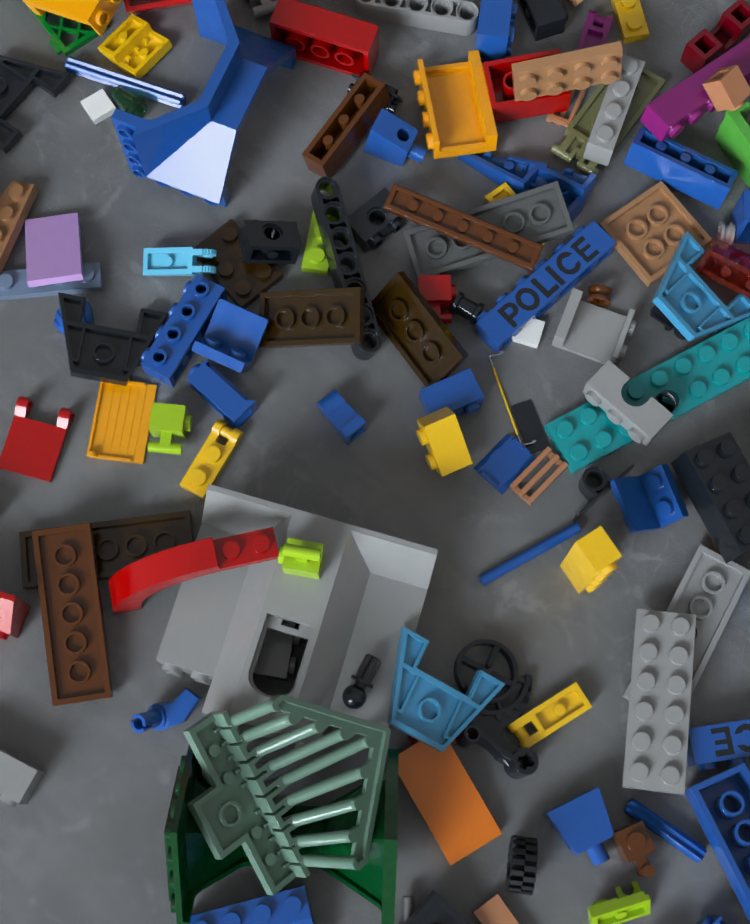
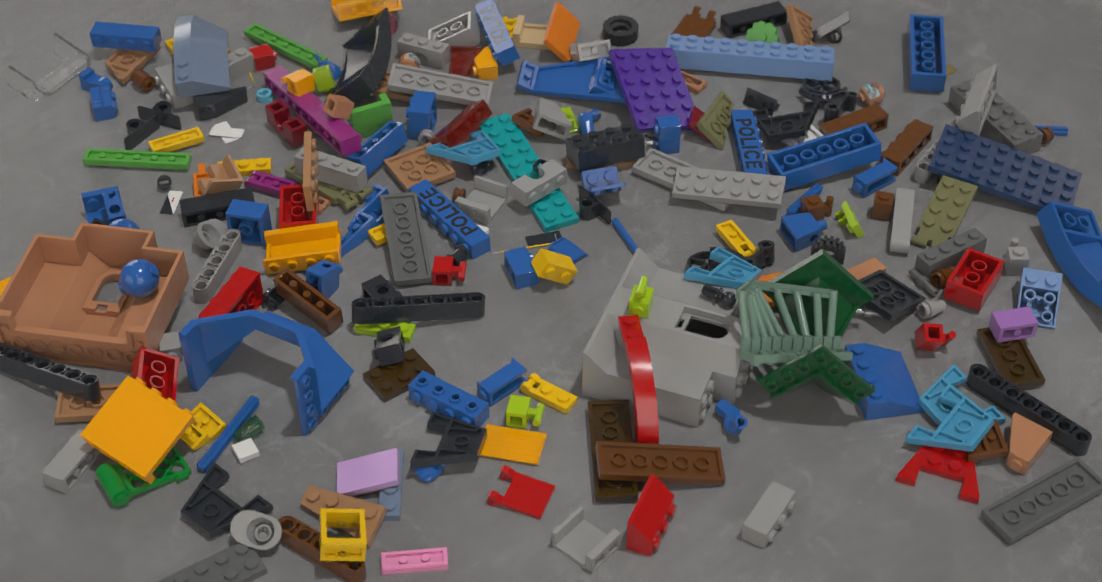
camera: 85 degrees left, 30 degrees down
(176, 261) = (393, 402): medium azure hinge -> none
(232, 336) = (459, 370): blue bracket -> none
(313, 317) = (455, 324): dark brown plate -> none
(342, 417) = (527, 322): blue leg -> none
(417, 330) = (474, 274): dark brown plate -> none
(463, 227) = (401, 245): reddish brown tile -> none
(554, 459) = (581, 234): nougat tile -> none
(591, 561) = (645, 196): yellow brick -> none

